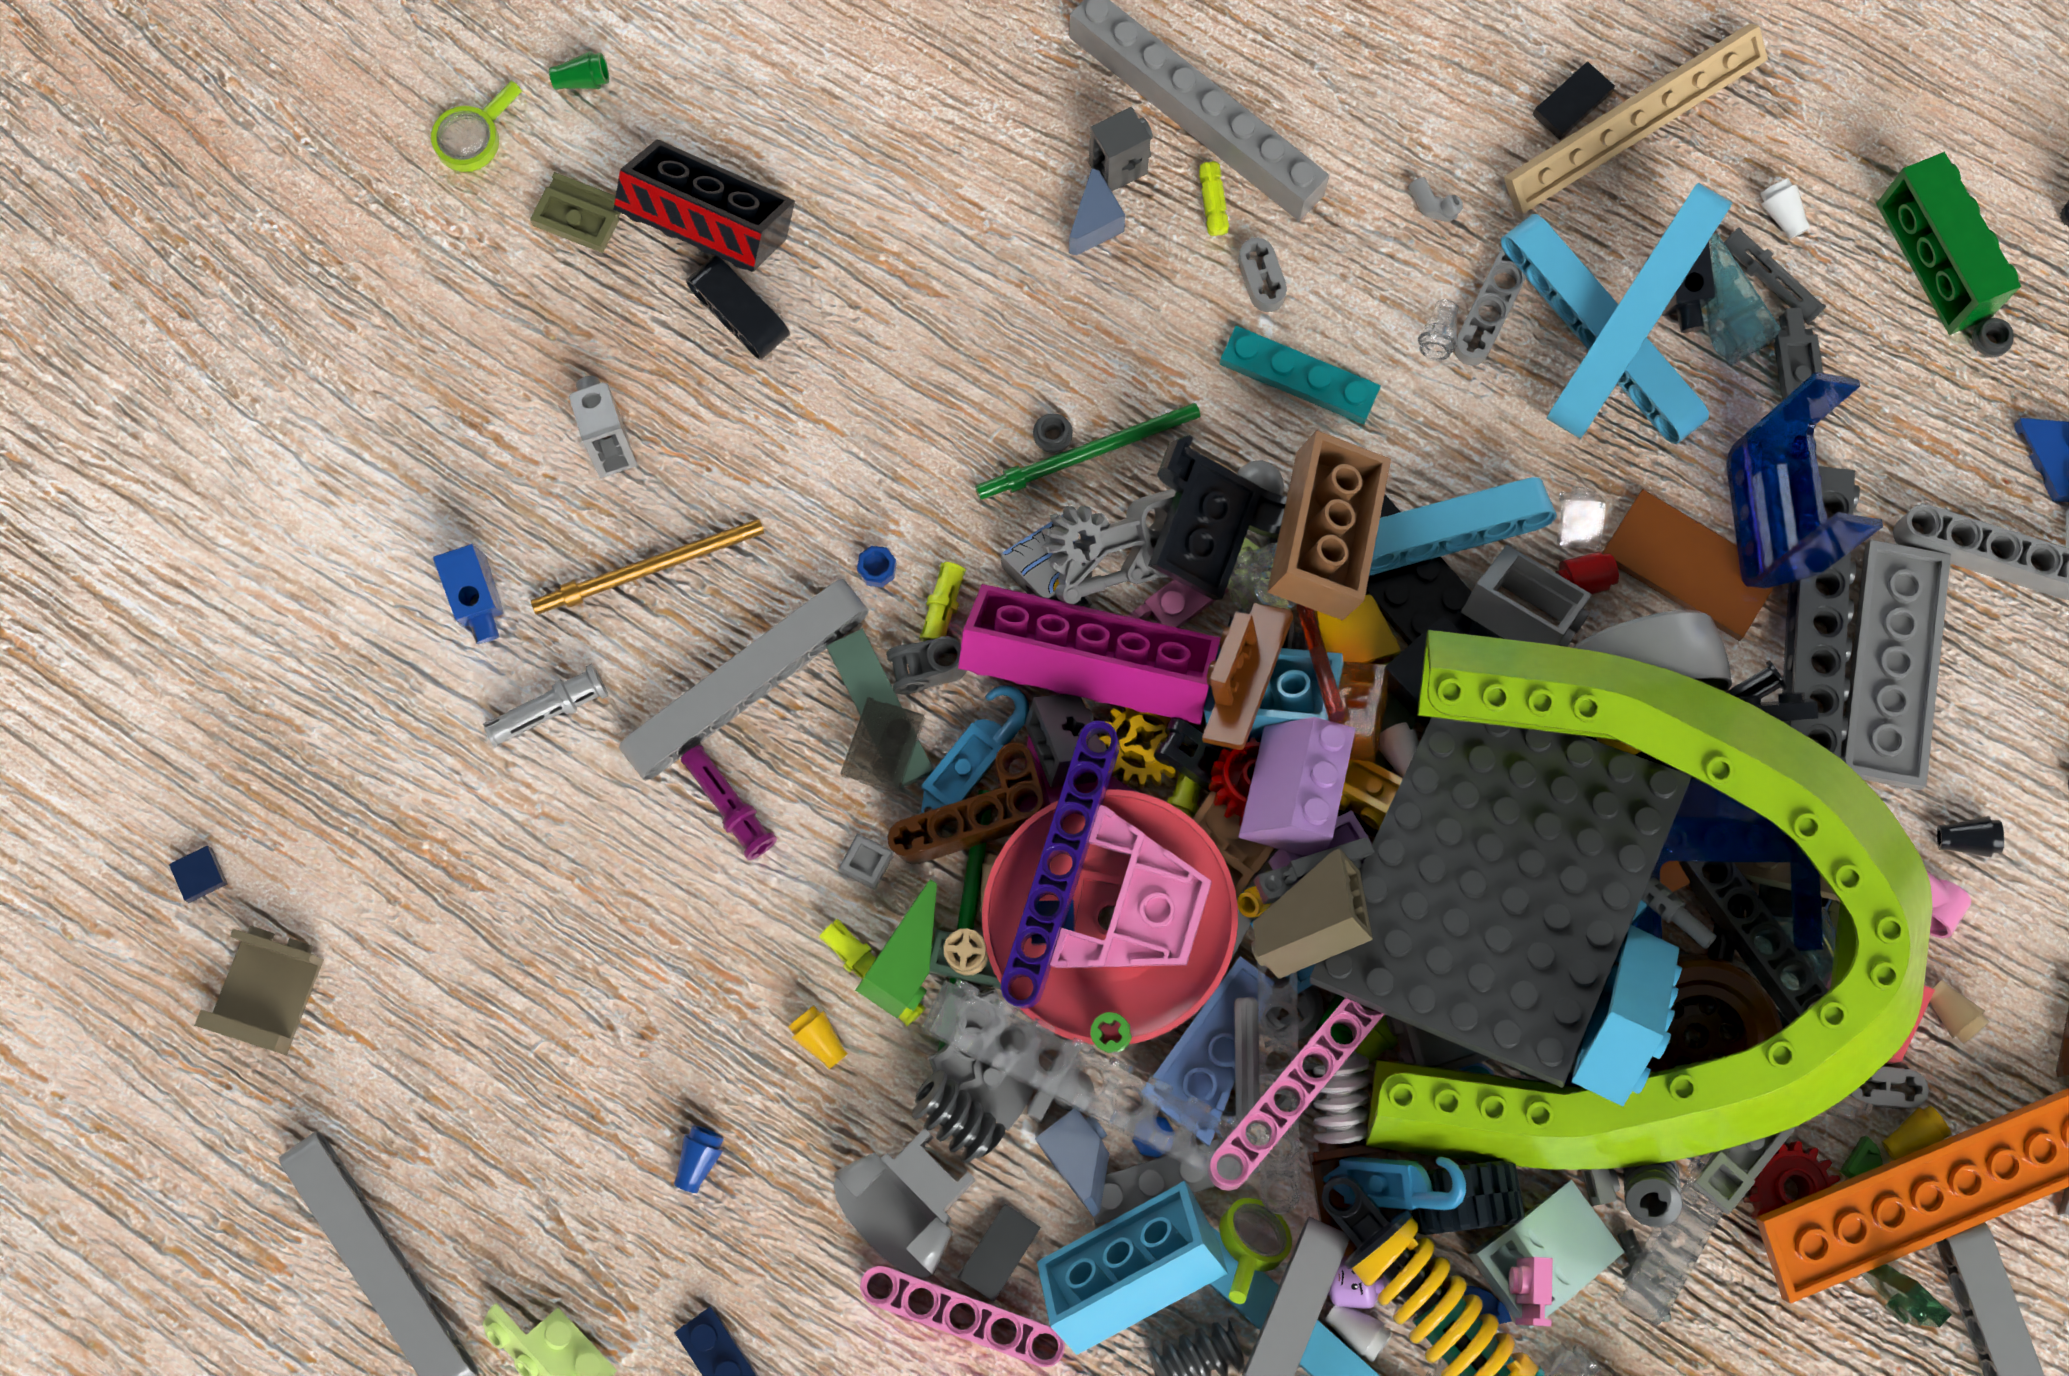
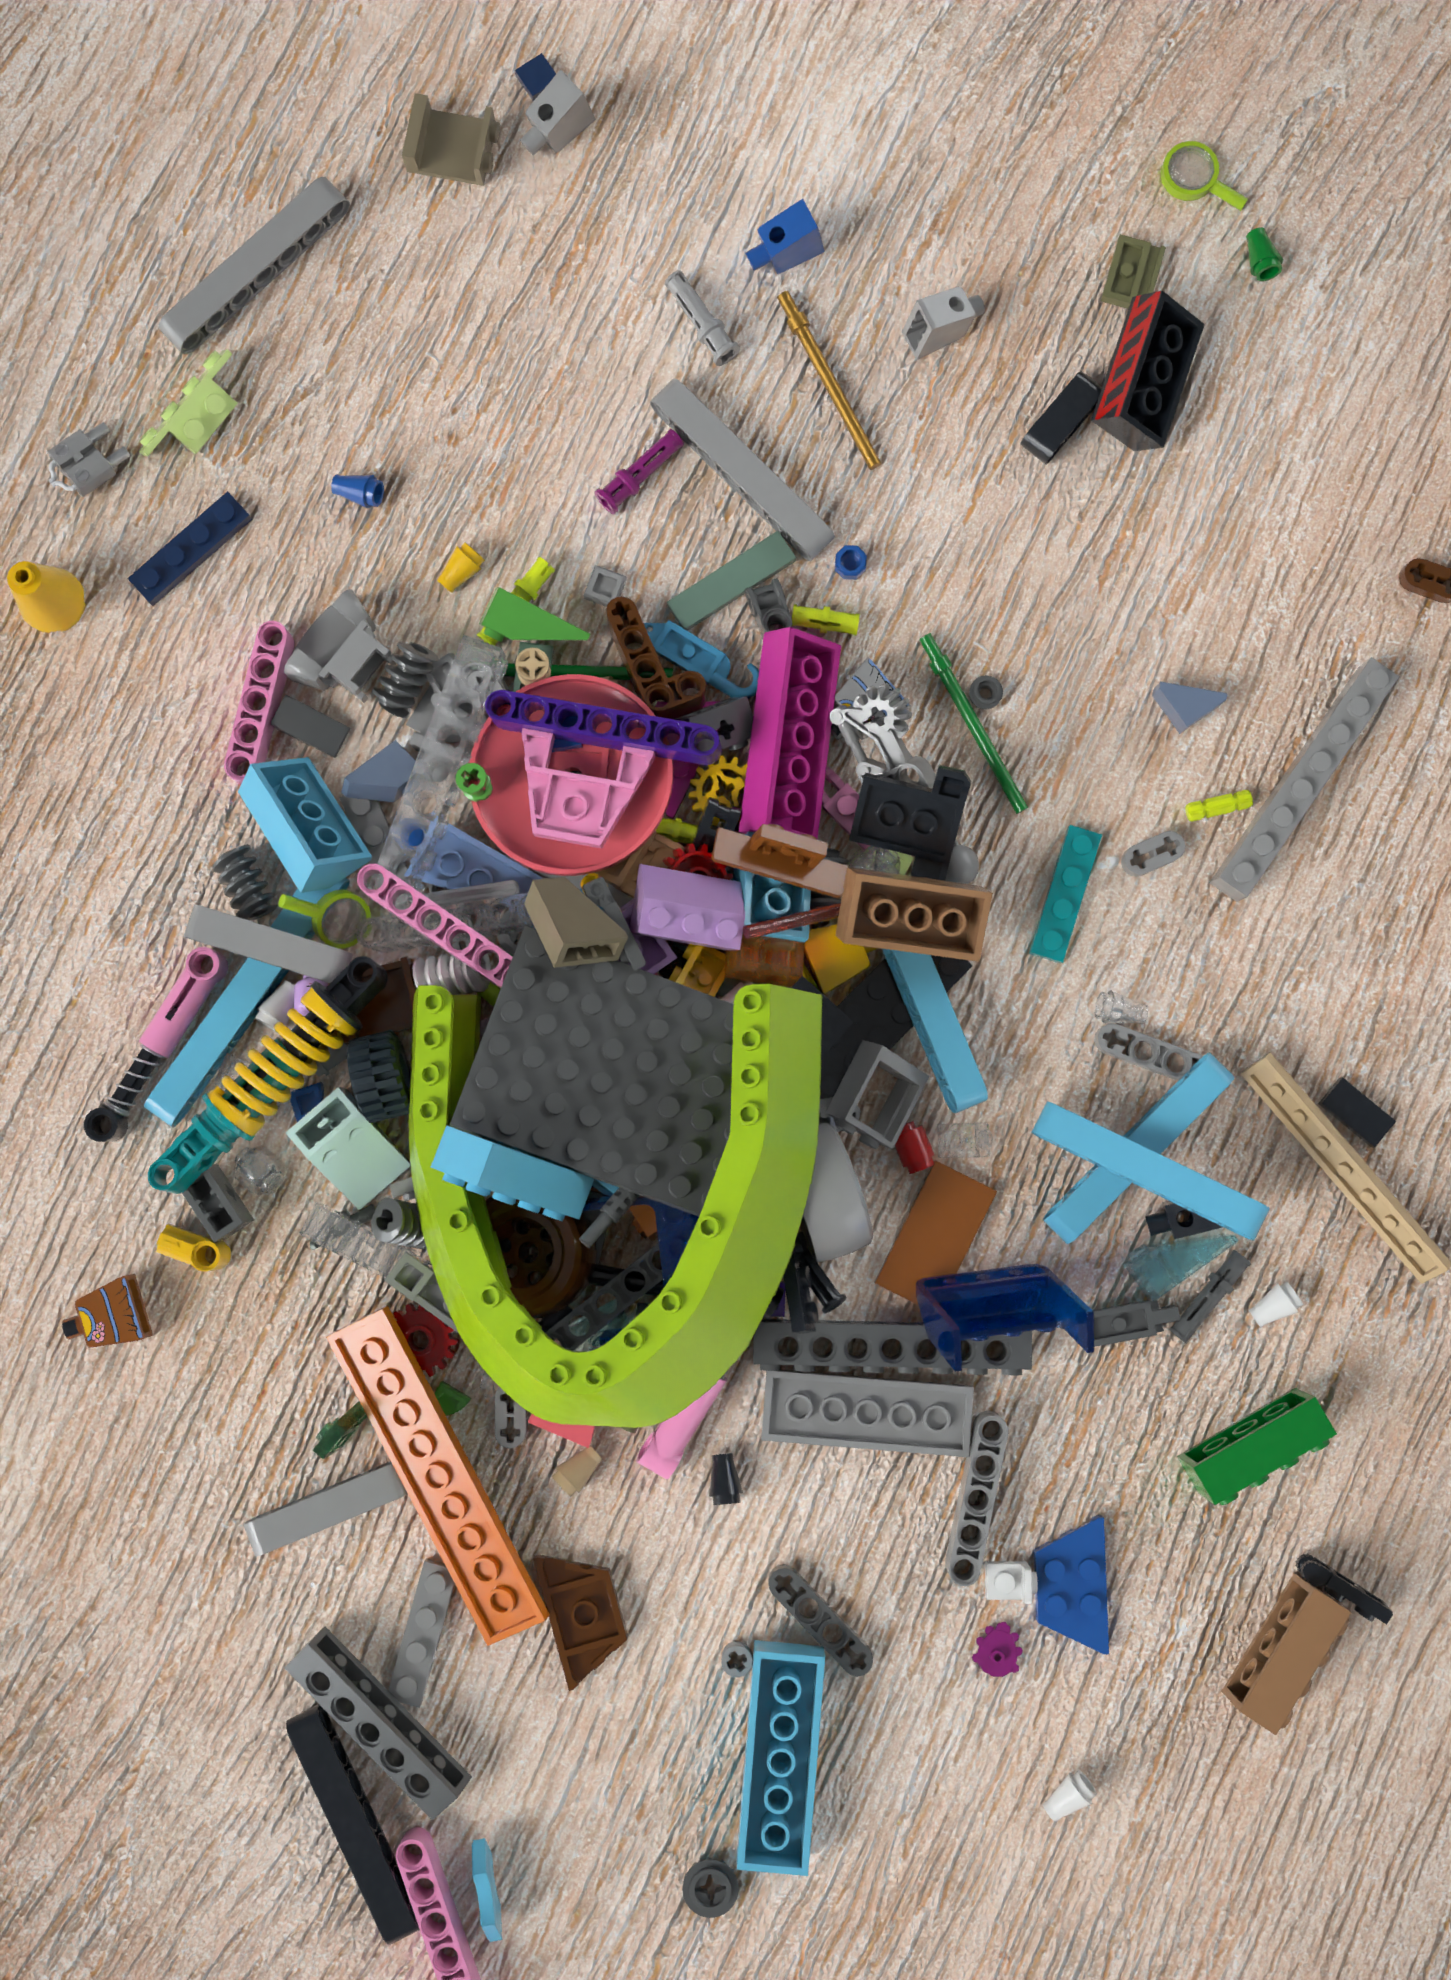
camera: 85 degrees right, 10 degrees up
(247, 839) = (557, 115): none -> light grey torso
(883, 745) = (696, 584): clear smoke plate -> none
(1120, 148) = (1248, 716): dark grey brick -> none
(1400, 1183) = (382, 1018): dark azure plate -> none
(1431, 206) = (1237, 995): light grey arm -> none
(1533, 1289) = (305, 1123): bright pink plate -> none
(1917, 1132) = (474, 1440): yellow cone -> none
(1999, 330) = (1186, 1498): dark grey plate -> none

